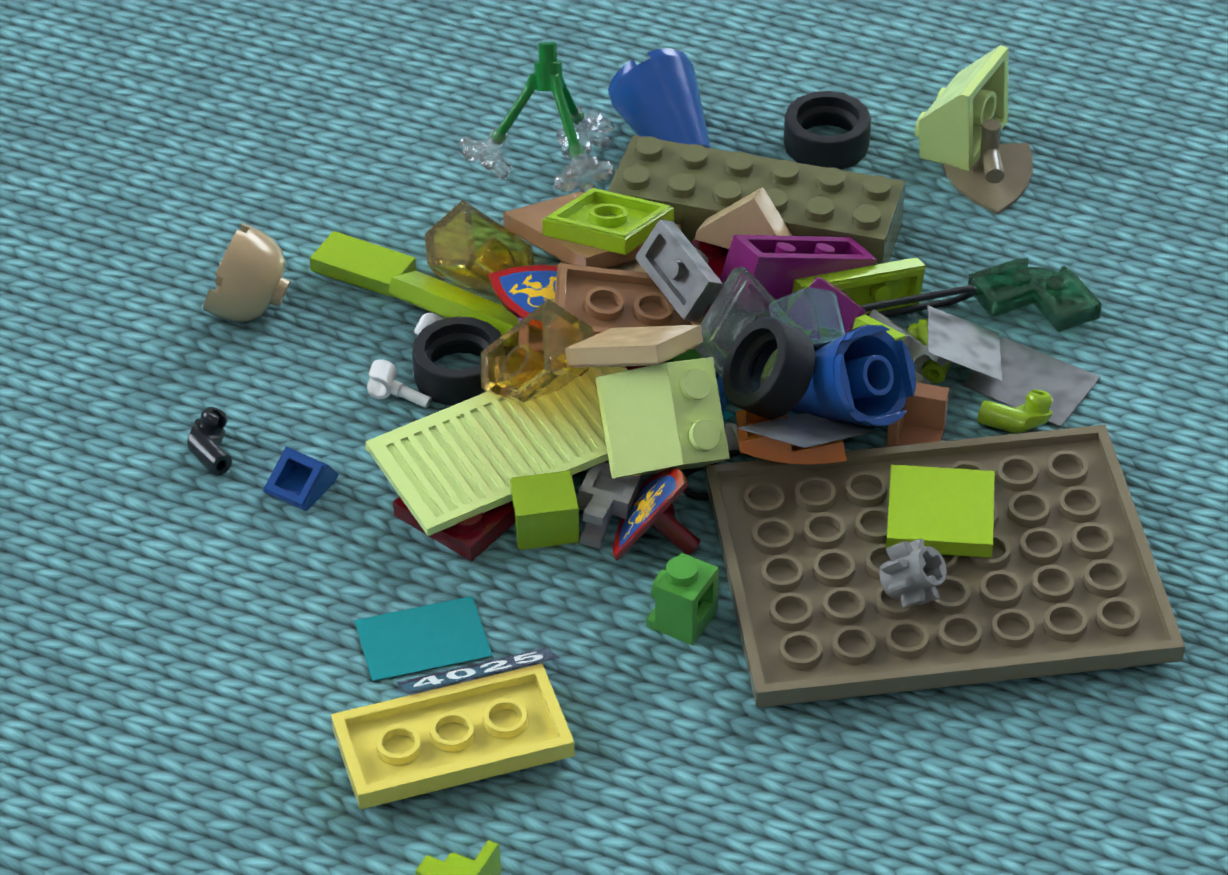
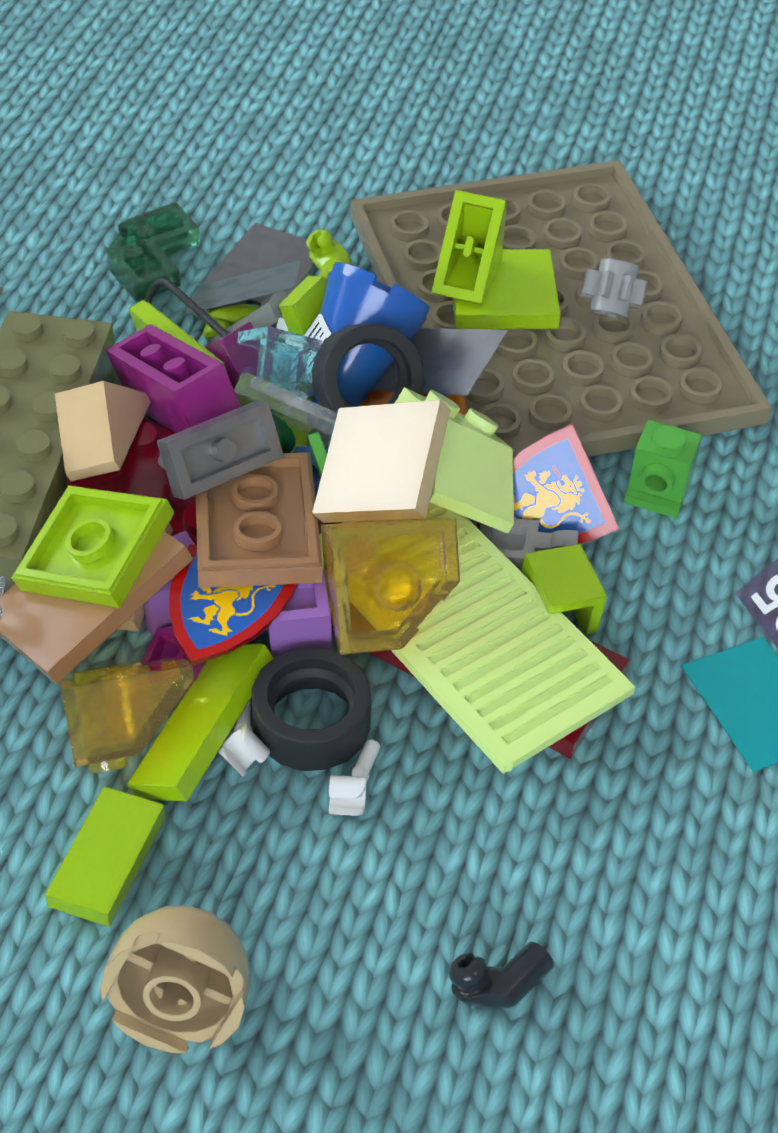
camera: 100 degrees left, 5 degrees up
(299, 479) = (542, 860): blue slope -> none
(956, 461) = (471, 247): none -> lime slope

